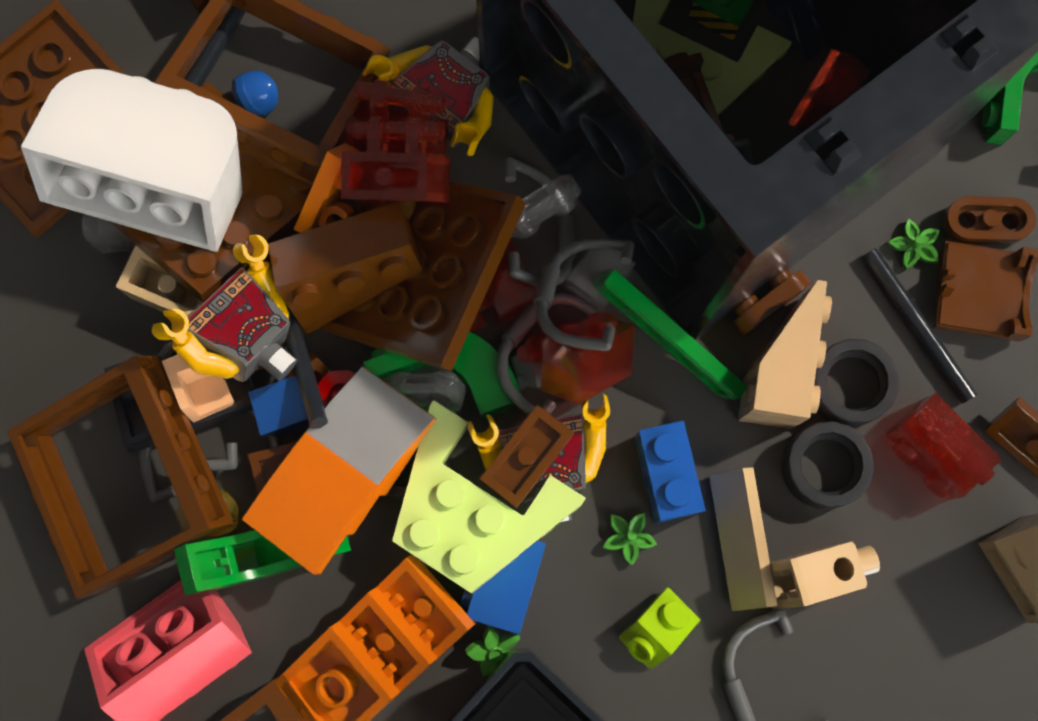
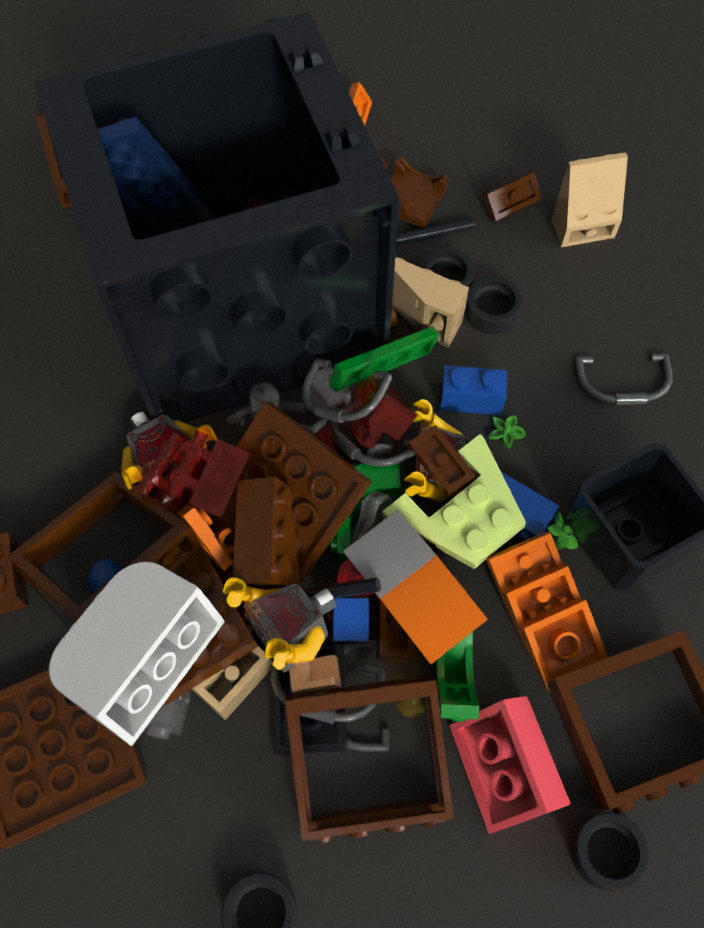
camera: 70 degrees left, 15 degrees down
(659, 629) = (575, 427): lime bracket -> none
(743, 539) = (529, 362): tan tile -> none
(822, 574) = (565, 314): tan torso -> none
(943, 448) = (501, 241): clear red brick -> none

